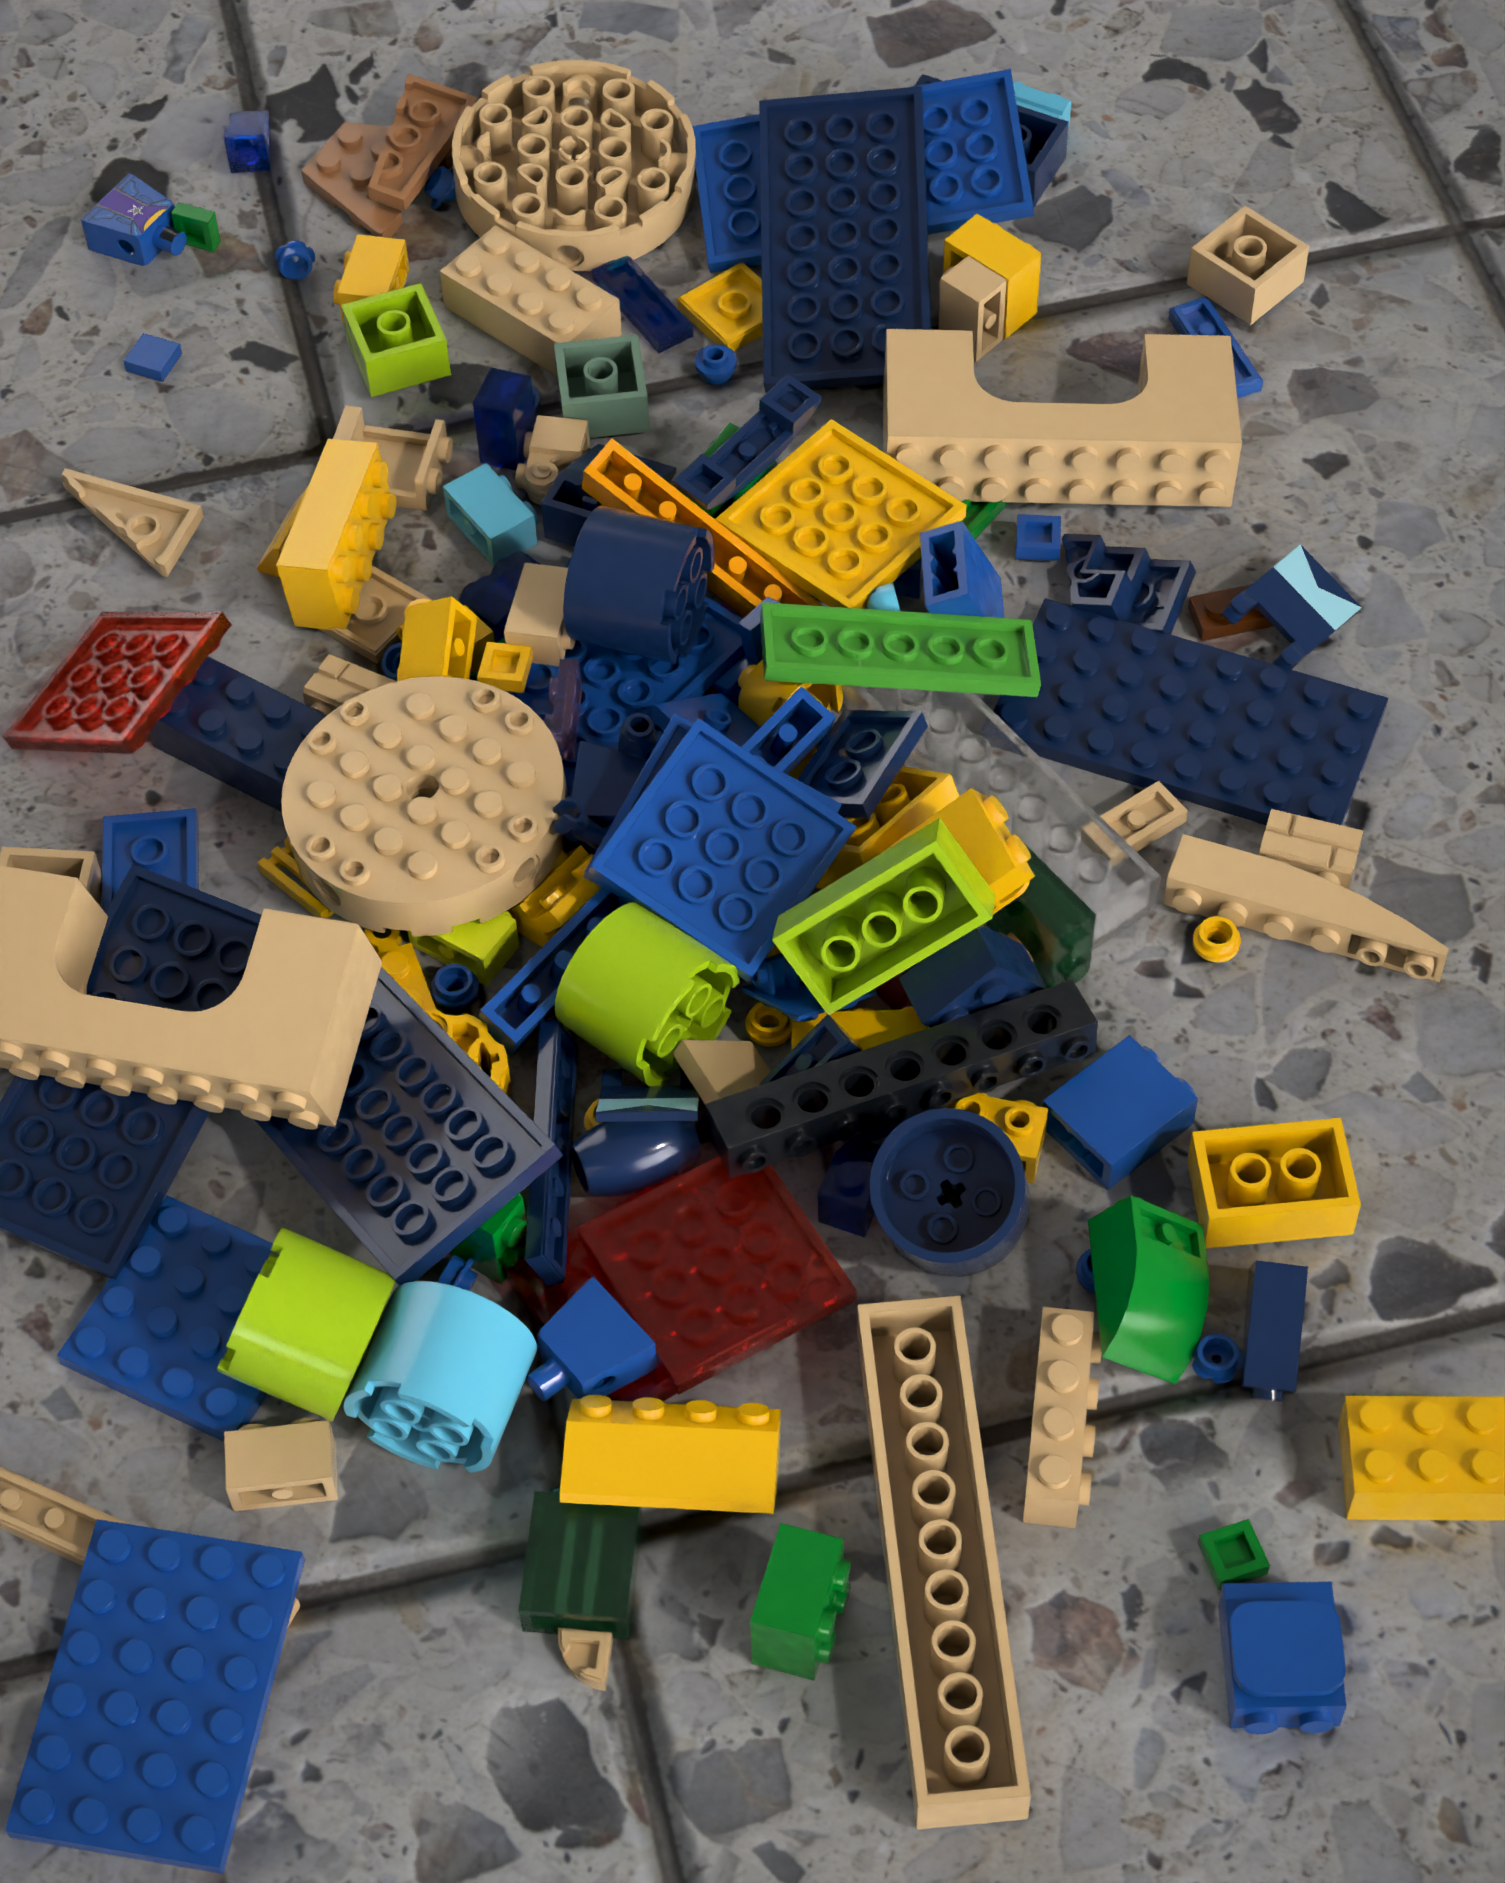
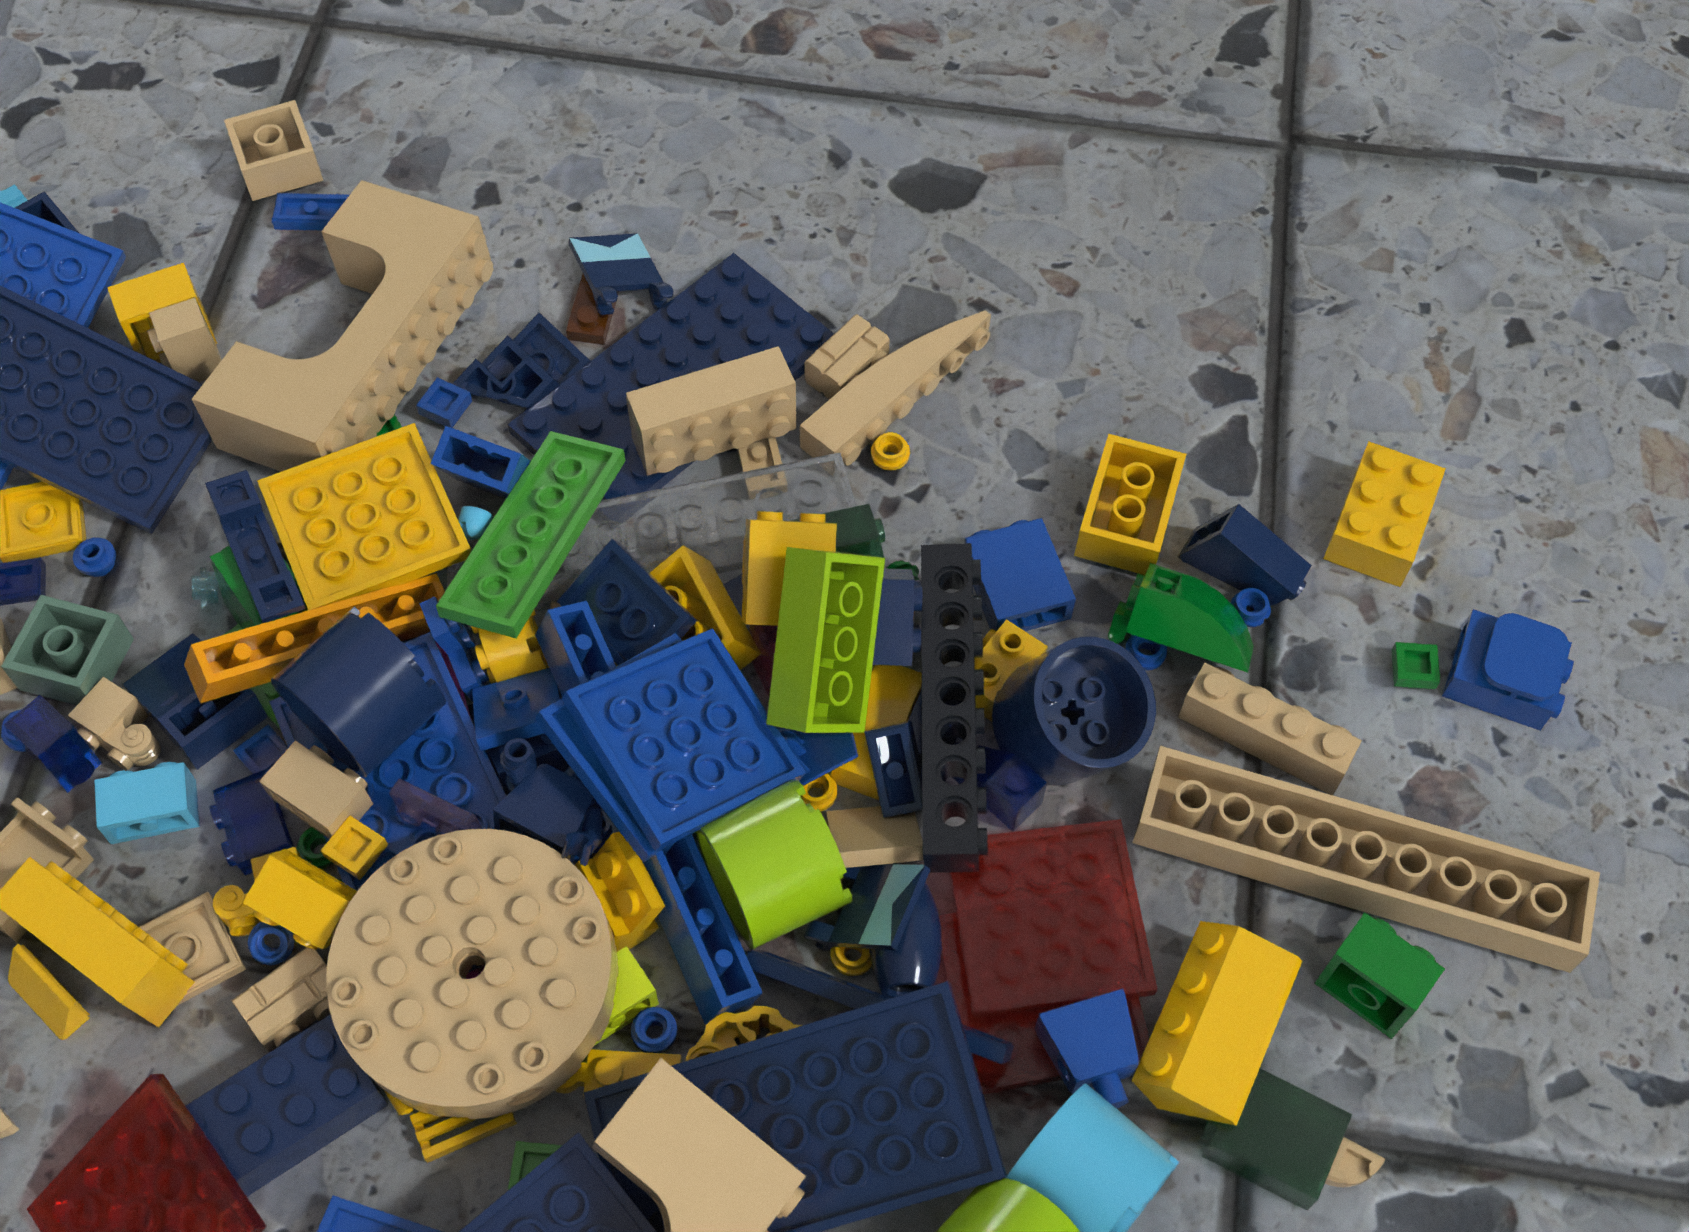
camera: 70 degrees left, 5 degrees up
(1139, 742) = (712, 410): none -> tan brick

